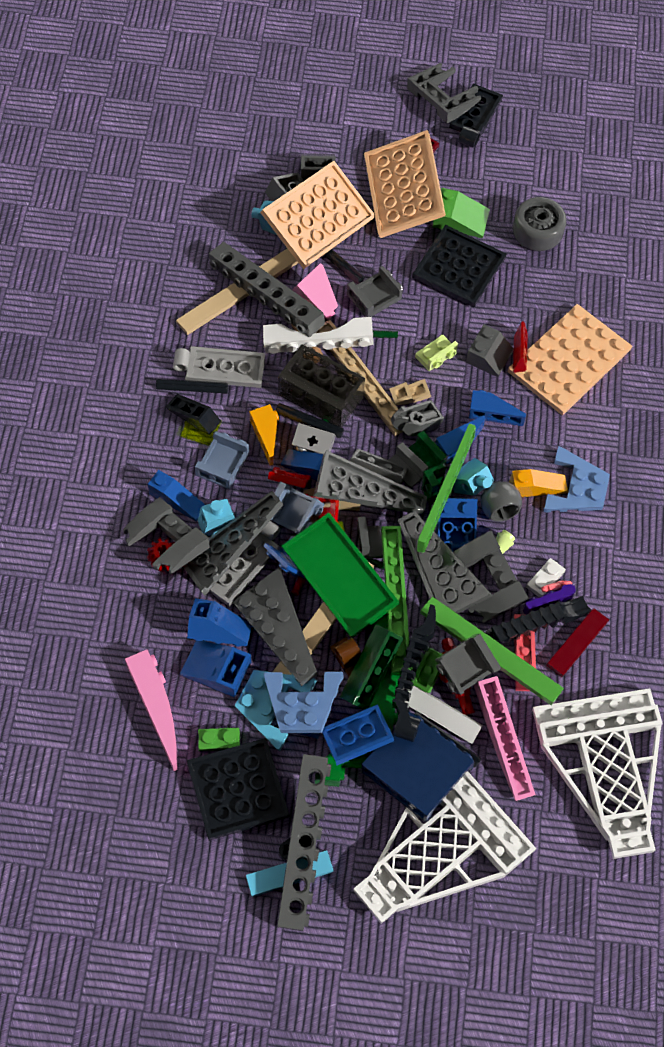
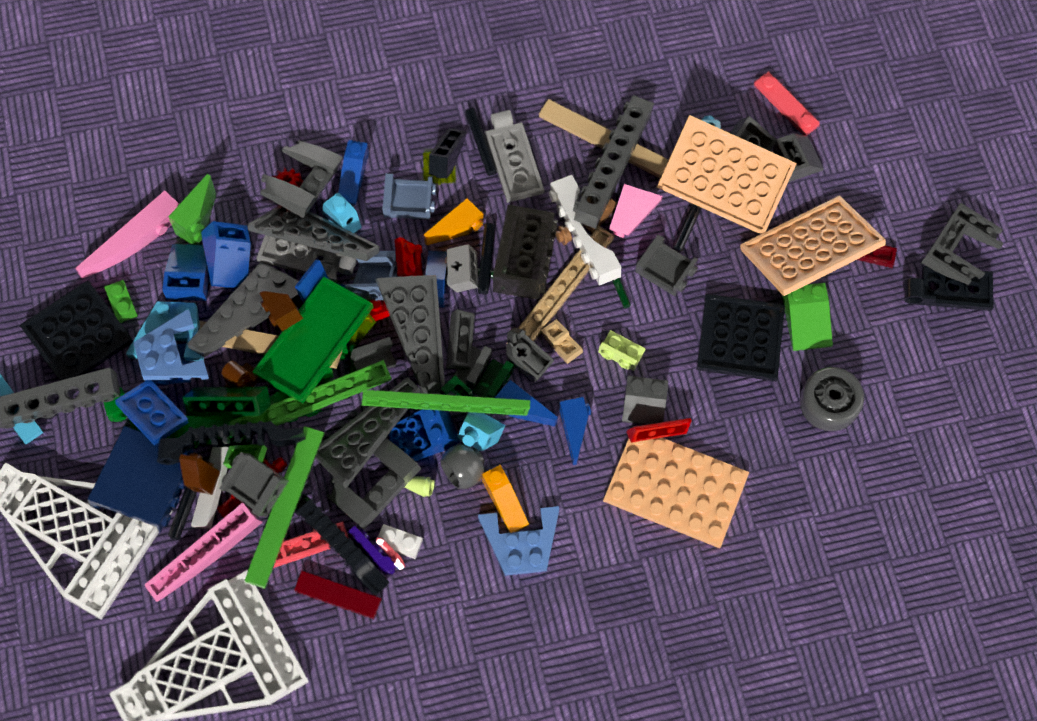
camera: 70 degrees right, 5 degrees up
(163, 638) = (194, 212): none -> bright green slope
(262, 156) = (786, 104): none -> coral plate
(301, 589) = (282, 309): none -> reddish brown slope
(433, 713) = (198, 474): none -> reddish brown slope

